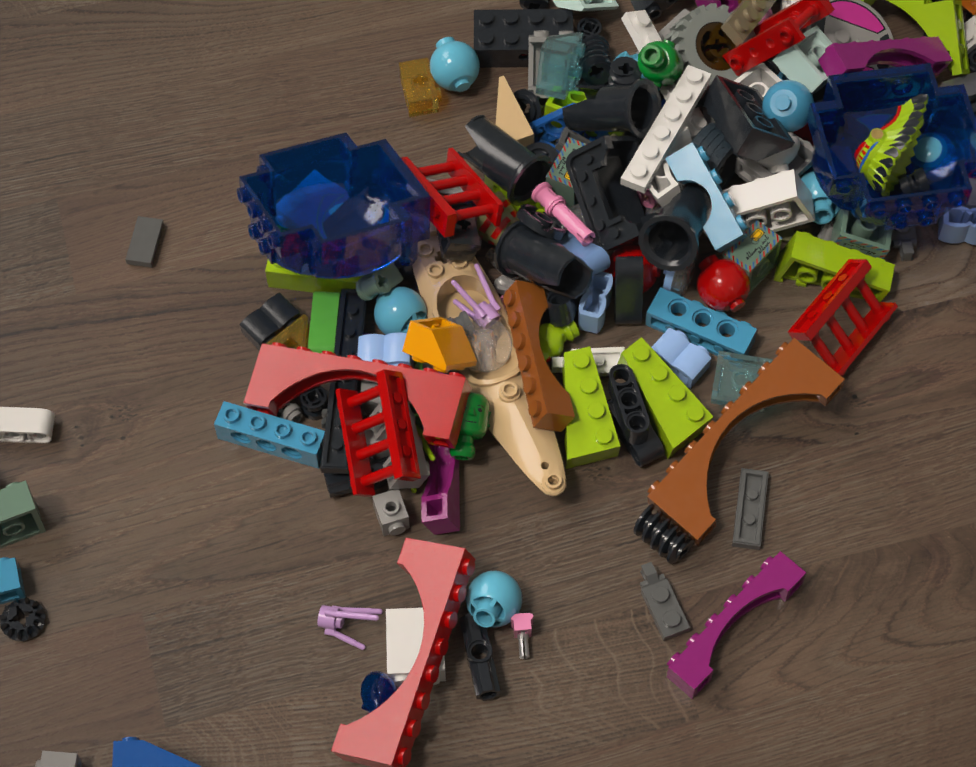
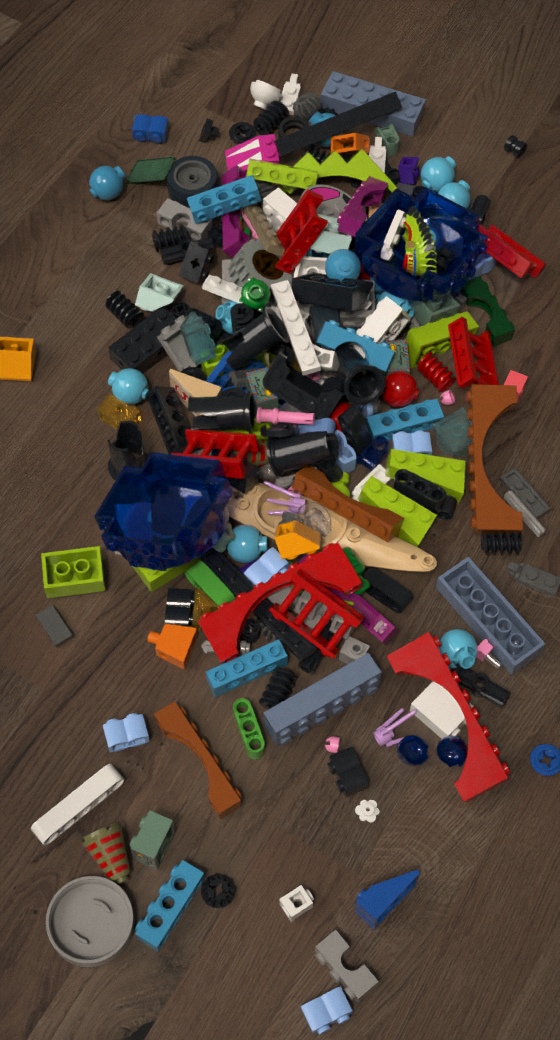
camera: 45 degrees left, 0 degrees up
(68, 690) = (298, 894): none -> white brick
(98, 396) = (126, 732): none -> light blue brick
(119, 530) = (175, 726): none -> dark orange arch
(207, 203) = (73, 572): none -> lime brick
(211, 506) = (248, 719): none -> bright green beam
(230, 352) = (174, 643): none -> orange torso
(244, 681) = (369, 815): none -> white plant
(257, 621) = (348, 772): none -> black brick
(274, 583) = (334, 744): none -> bright pink hinge
(278, 481) = (277, 687): none -> black piece
(304, 527) = (322, 700): none -> sand blue brick
(340, 657) = (412, 750): none -> clear blue hair
(376, 117) = (128, 440): none -> black piece
(472, 102) = (169, 418): none -> black brick
(490, 477) = (387, 590): none -> black beam
(565, 596) = (490, 615): none -> sand blue brick
(629, 330) = (371, 456): none -> clear blue piece
(726, 528) = (527, 516): none -> light grey axle
(776, 339) = (447, 398): none -> bright pink hinge
(789, 300) = (435, 374): none -> red piece
(862, 386) = (518, 379): none -> coral brick
(878, 114) = (393, 235): none -> white hinge
(915, 308) = (479, 296): none -> dark green arch

